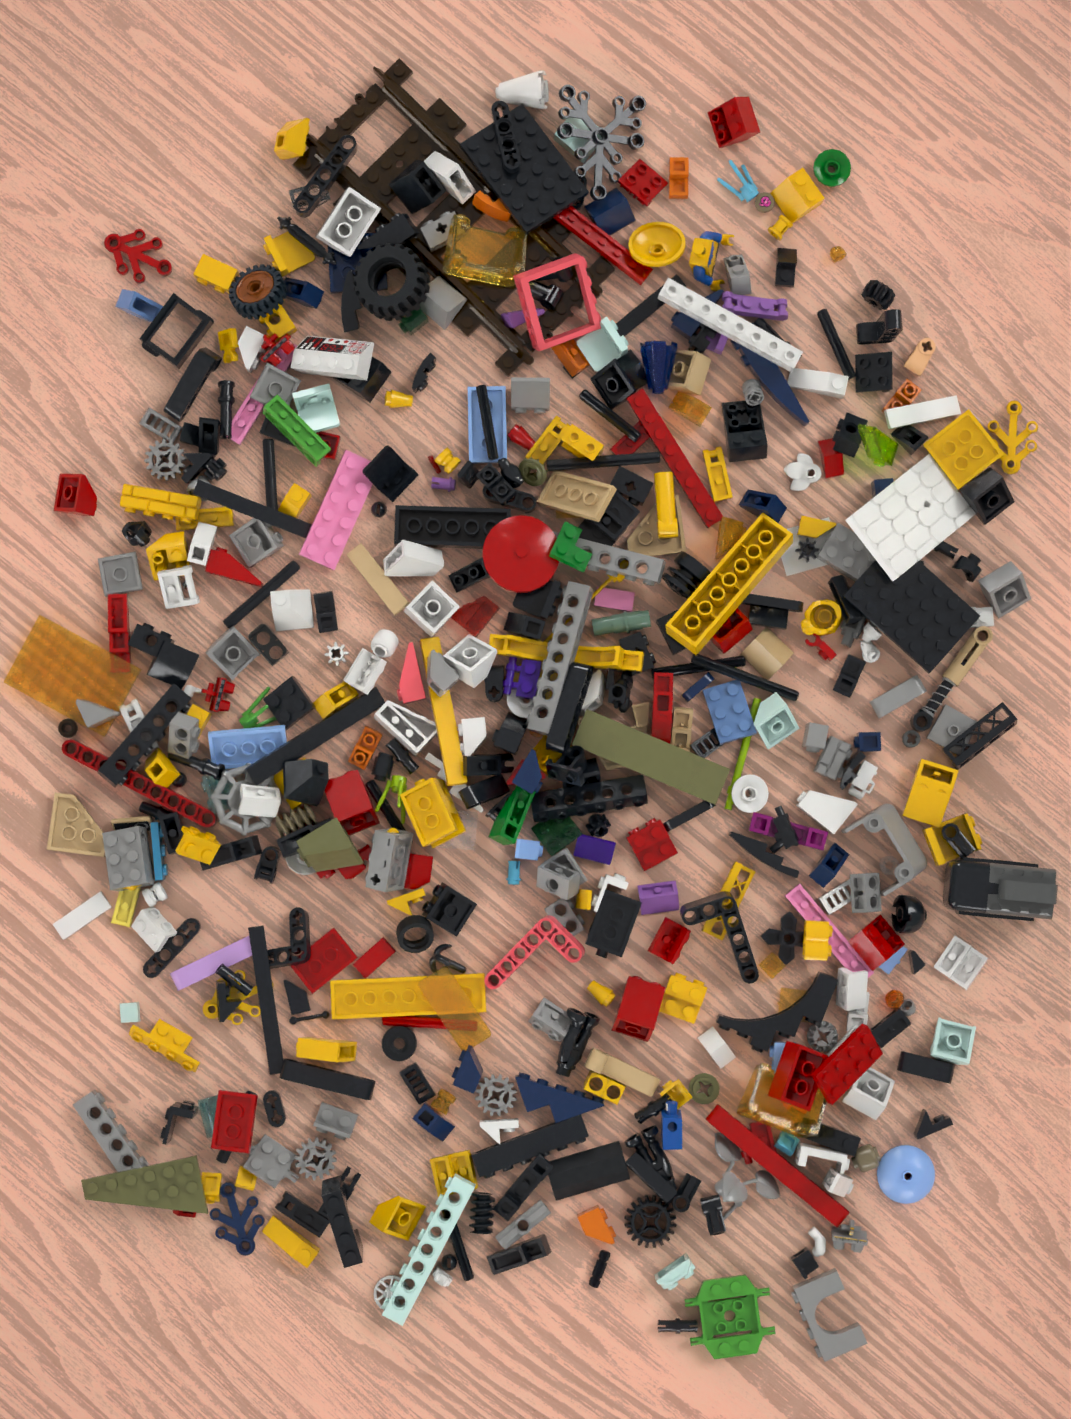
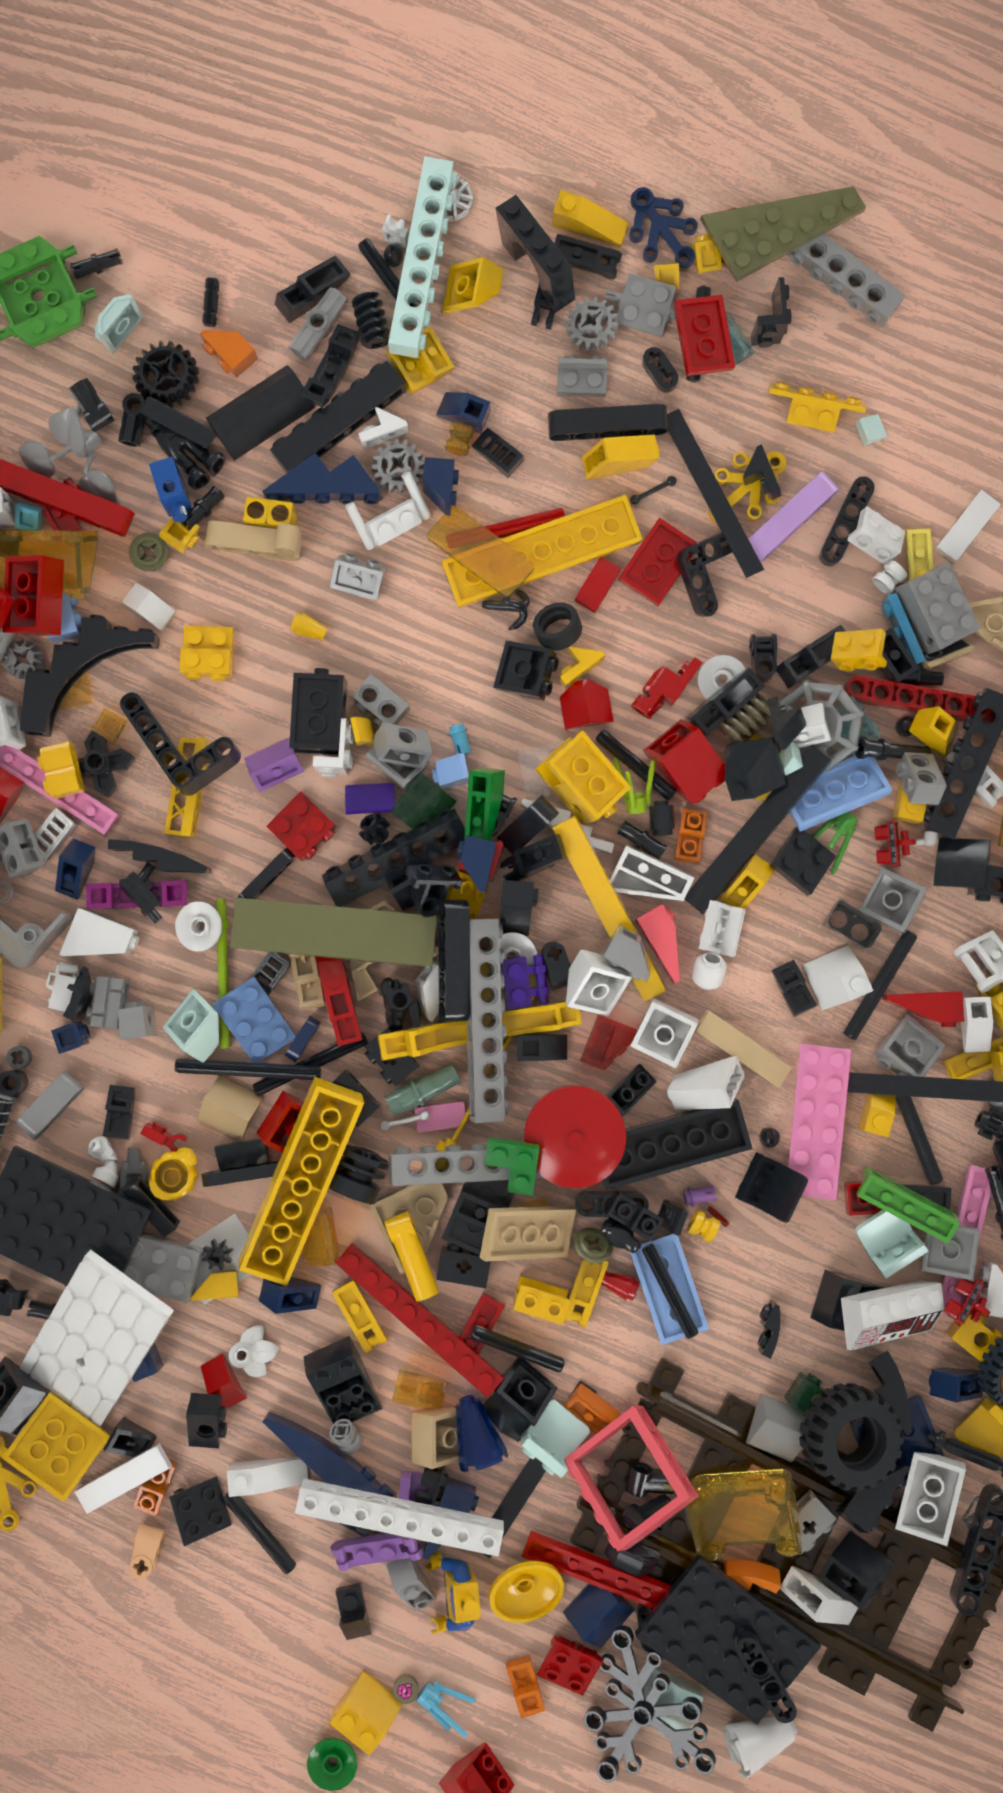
camera: 165 degrees right, 0 degrees up
(223, 972) = (760, 502): black pin -> none
(271, 805) = (785, 723): none -> black slope
(274, 780) = (791, 759): none -> light aqua slope
(297, 998) = (675, 508): black tile -> none
(328, 848) = (697, 694): olive slope -> none
(336, 648) = (770, 937): white gear -> none
(388, 1043) = (530, 478): black tyre -> none
(389, 859) = (618, 704): light grey piece -> none
(397, 399) = (791, 1284): yellow cone -> none
(473, 734) = (563, 892): white slope -> none
(512, 1053) = (394, 521): none -> white plate
(516, 318) = (675, 1438): medium lavender slope -> none
(529, 947) = (411, 652): coral beam -> none
(530, 394) = (627, 1345): light grey slope -> none
(539, 601) = (531, 1084): black bracket -> none
(571, 1046) = (321, 561): black piece -> none
(572, 242) = (635, 1561): none -> black slope
(603, 461) = (507, 1287): black axle -> none
(638, 1008) = (256, 623): red slope -> none
(656, 605) = (386, 1125): none -> white hinge
(669, 940) = (243, 715): red bracket -> none
(780, 227) = (375, 1663): yellow bush -> none
(837, 253) = (292, 1651): clear yellow hinge -> none
(878, 294) = (223, 1615): black gear -> none
(878, 445) = (165, 1419): clear neon green slope -> none
(882, 331) = (200, 1574): black beam -> none

